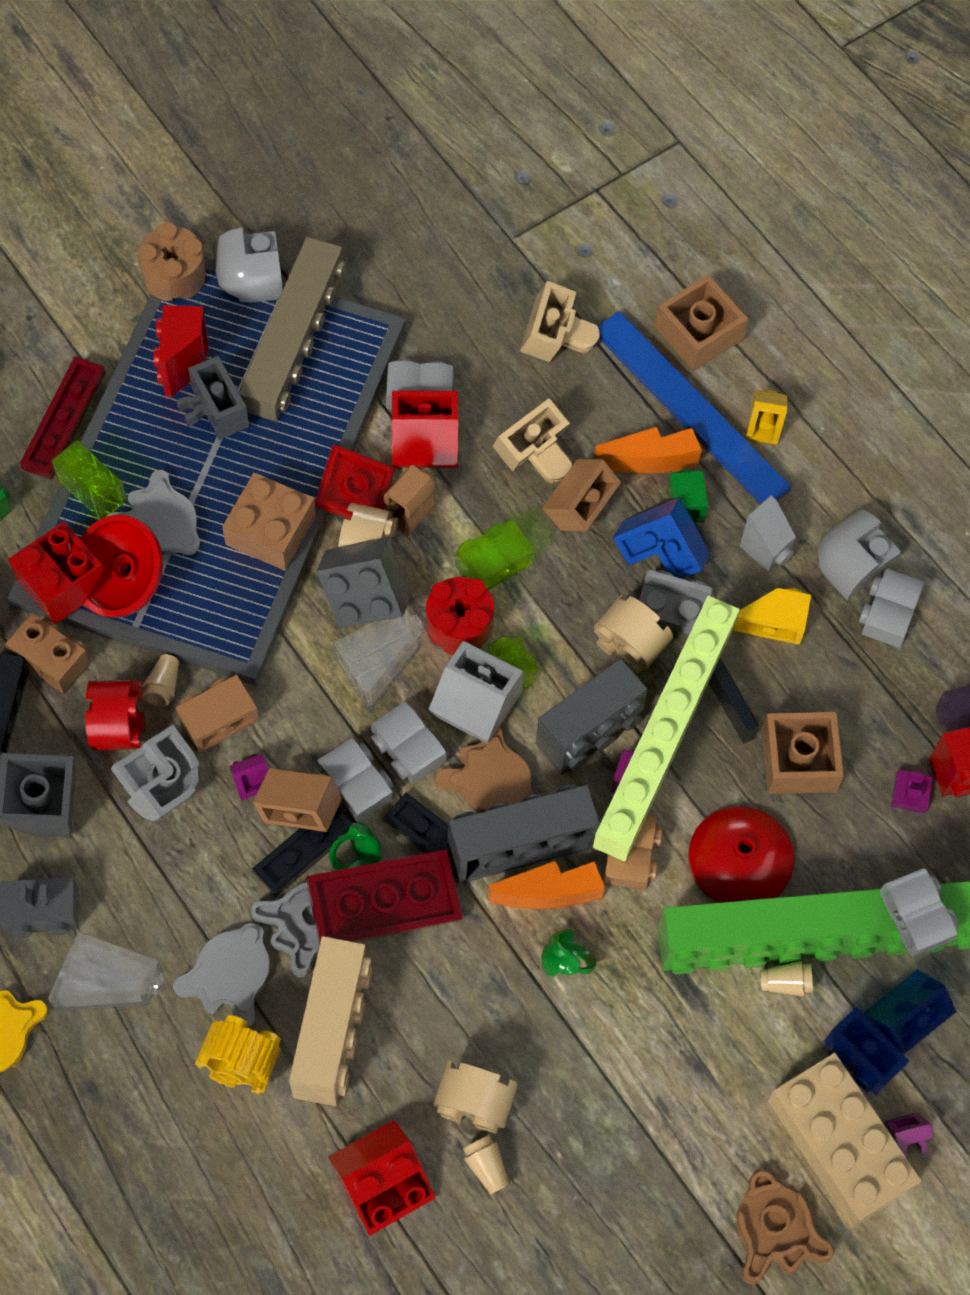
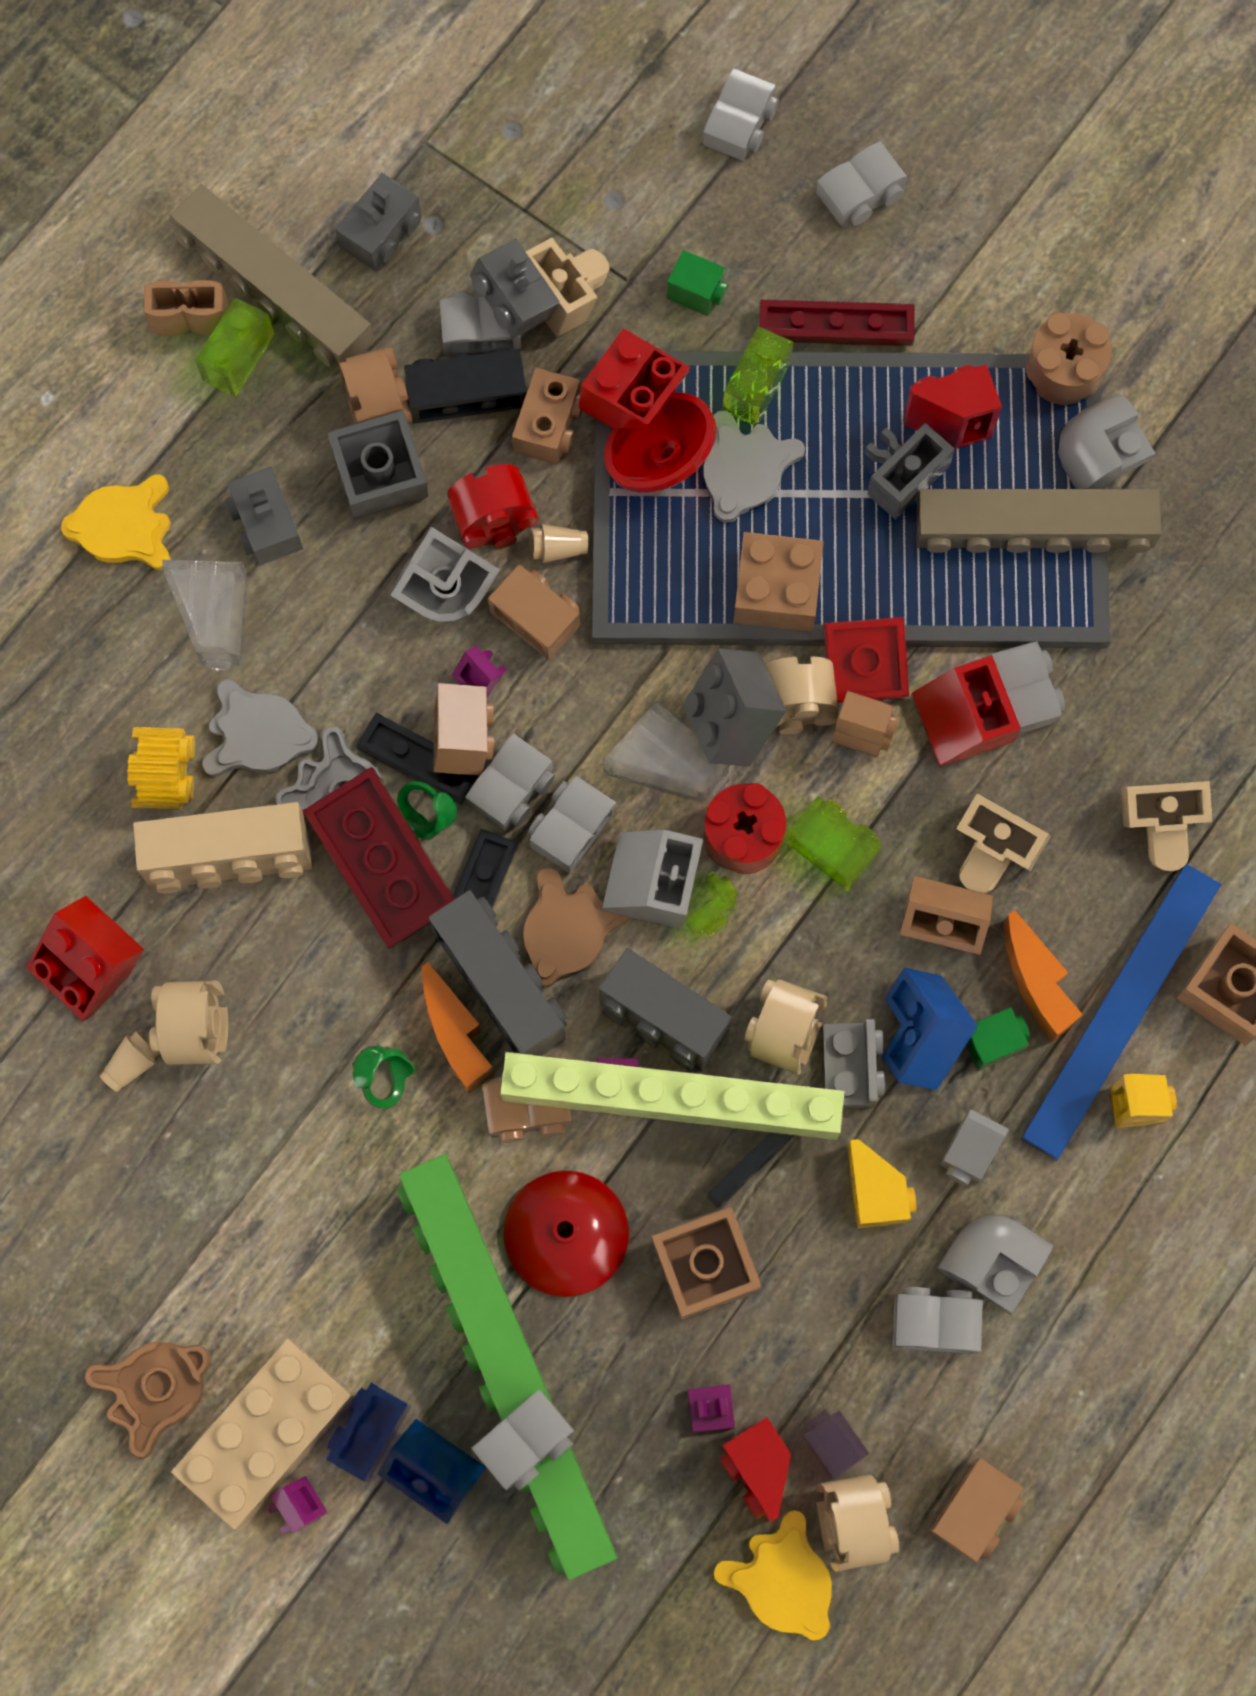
camera: 75 degrees right, 10 degrees up
(788, 979) = (433, 1325): tan cone -> none

